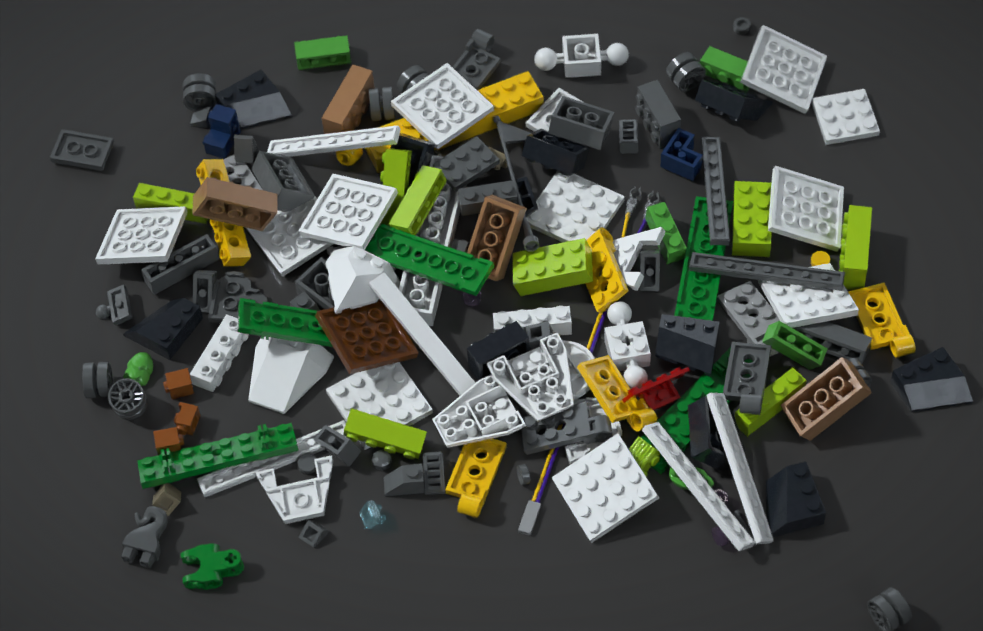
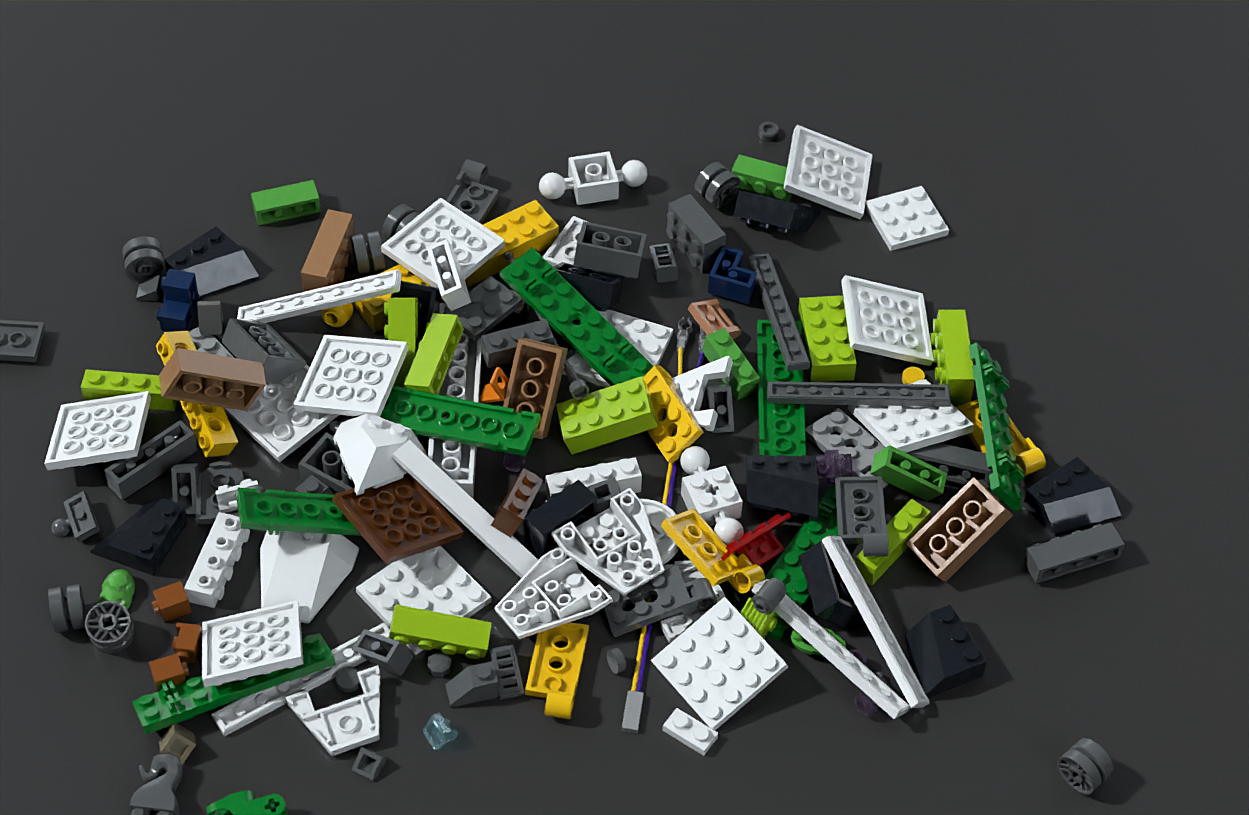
camera: 15 degrees left, 5 degrees down
(232, 300) = (227, 495): none -> white hips
(234, 426) = (251, 643): none -> white plate
(440, 133) = (448, 275): none -> white brick
(463, 237) = (495, 391): none -> orange bracket
(465, 333) = (517, 502): none -> reddish brown brick
(528, 168) = (560, 305): none -> green piece
(572, 540) = (690, 731): none -> white plate
(653, 437) = (769, 596): none -> dark grey brick
(659, 190) = (713, 318): none -> nougat plate
(733, 331) = (833, 465): none -> clear purple brick
(876, 313) = (995, 424): none -> green piece
(922, 428) = (1073, 552): none -> dark grey brick

